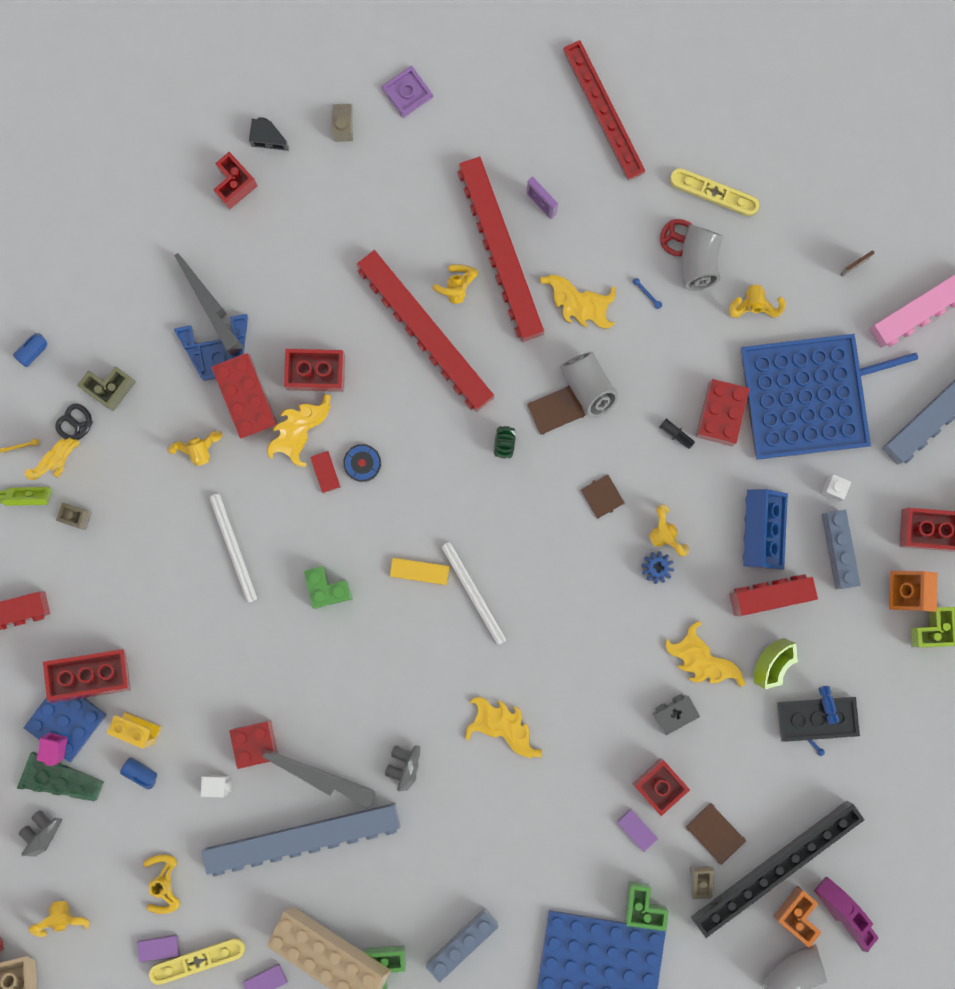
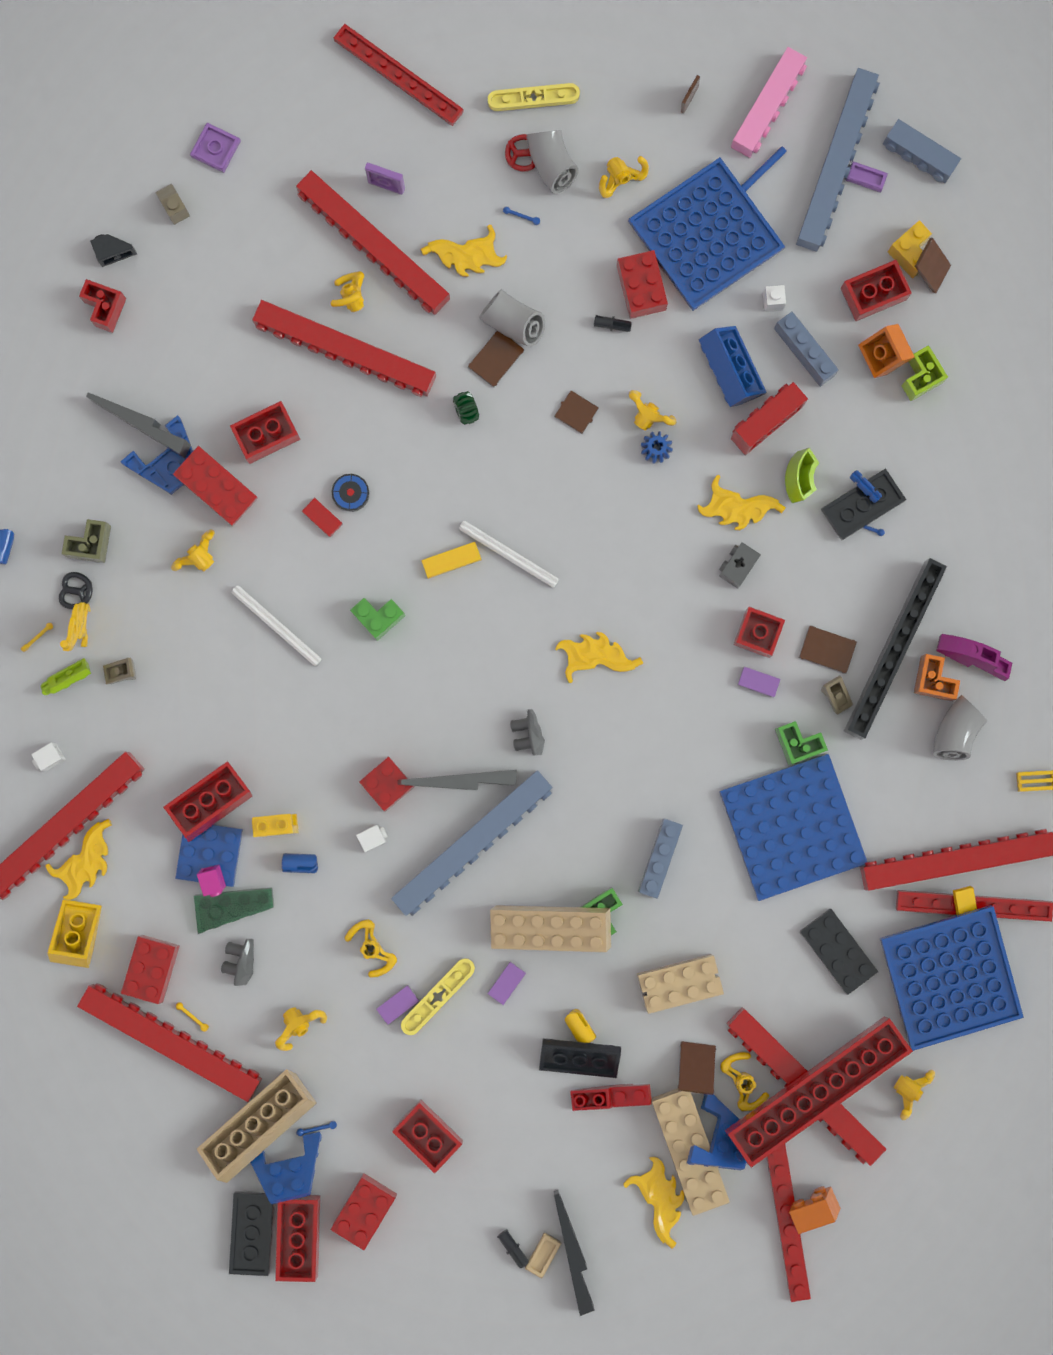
camera: 30 degrees left, 0 degrees up
(294, 429) = (274, 492): yellow piece -> none

